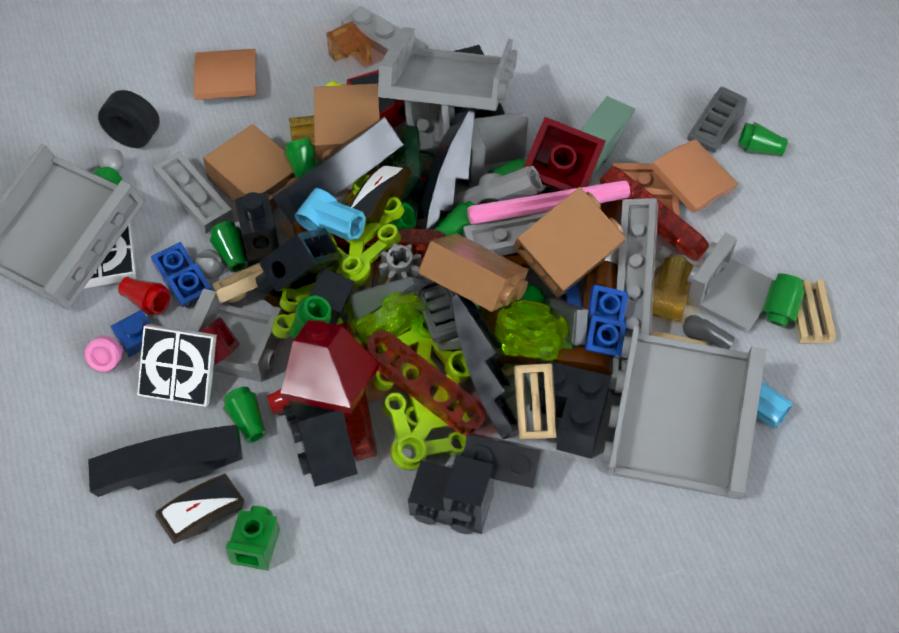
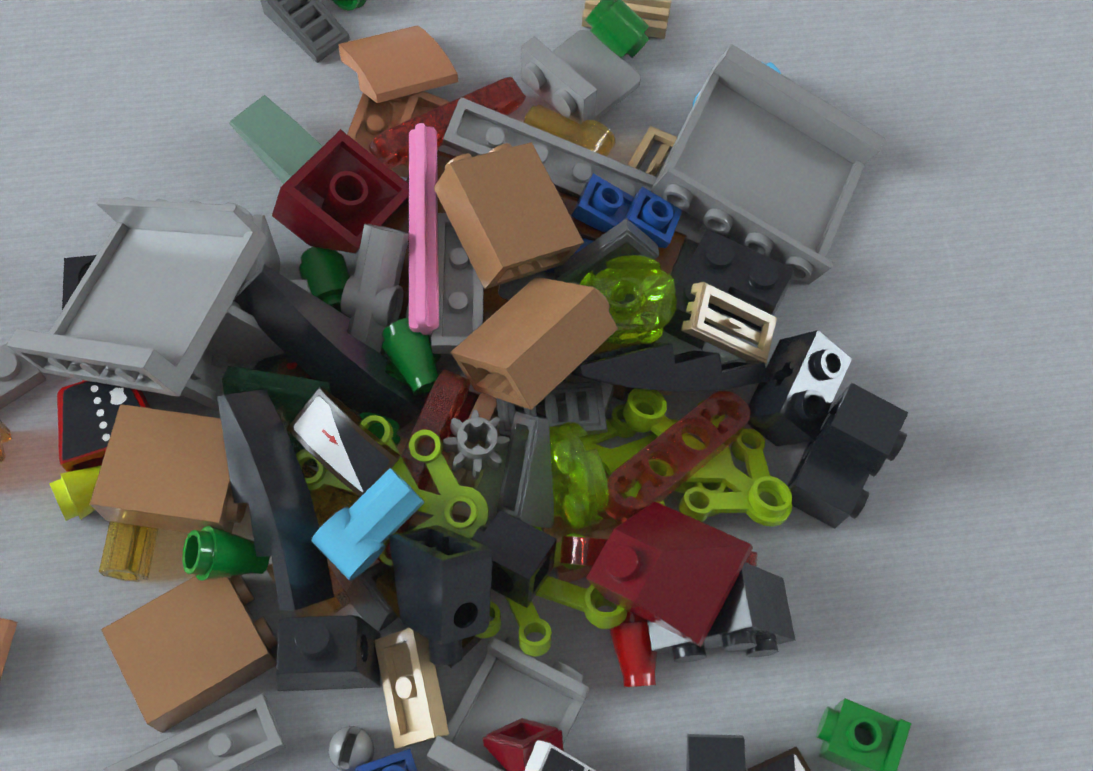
camera: 80 degrees left, 10 degrees up
(229, 244) = (331, 708): green cone -> none
(244, 411) = (650, 725): green cone -> none
(310, 308) = (561, 582): green cone -> none
(704, 330) = (637, 122): dark grey arm -> none

